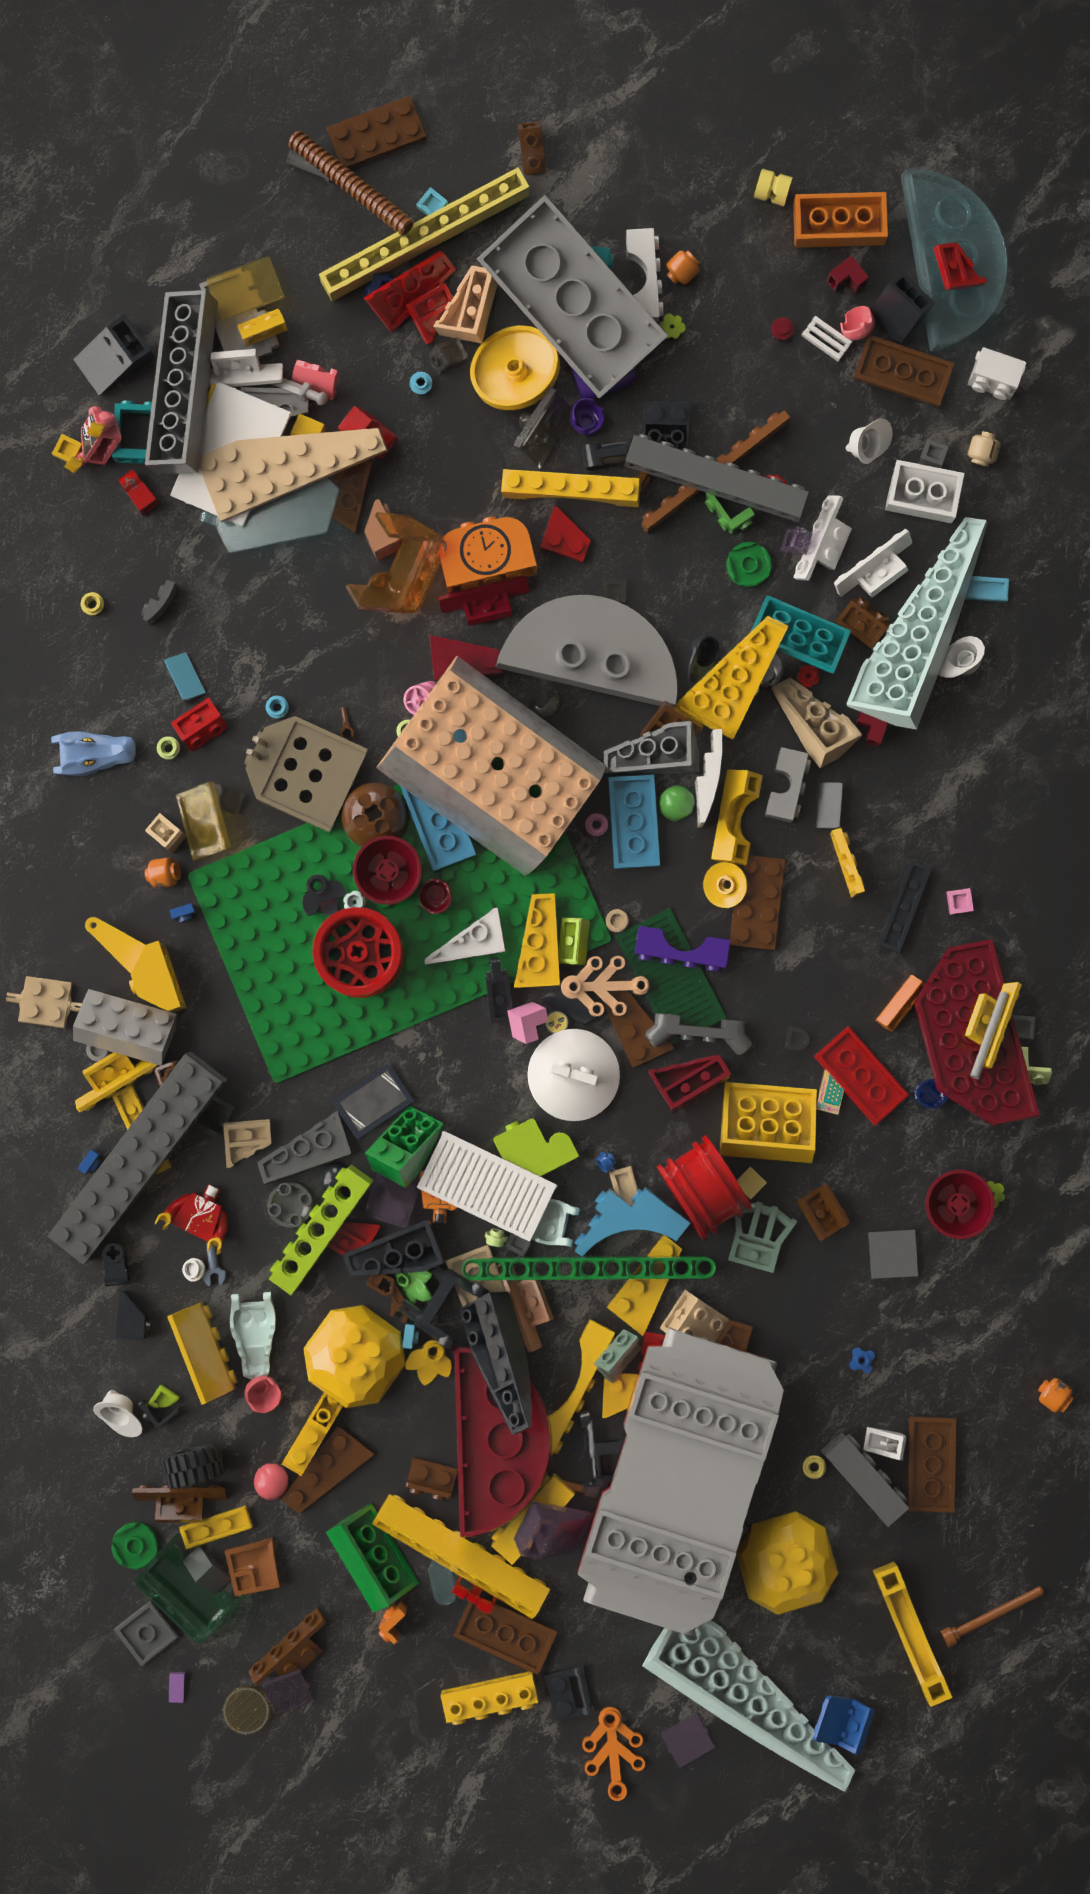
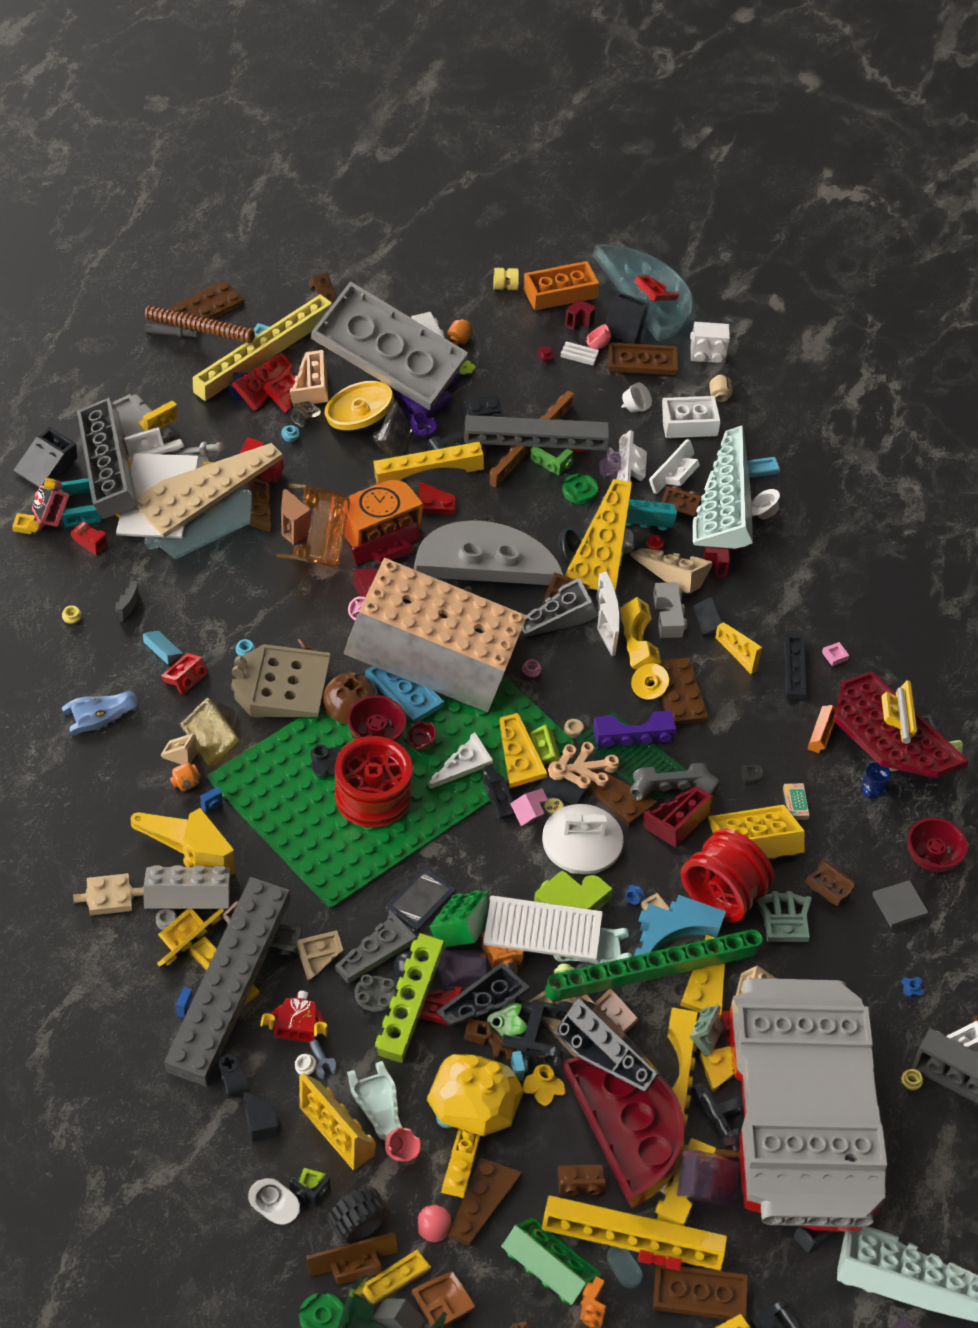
camera: 25 degrees left, 35 degrees down
(163, 743) = (163, 694): yellowish green plate -> none
(245, 288) = (138, 403): clear yellow piece -> none
(317, 378) = (210, 436): coral slope -> none
(634, 821) = (560, 659): dark azure plate -> none
(676, 803) = (588, 641): bright green hair -> none
(786, 1563) = (926, 1165): yellow rock -> none
(861, 1076) = (815, 785): red tile -> none

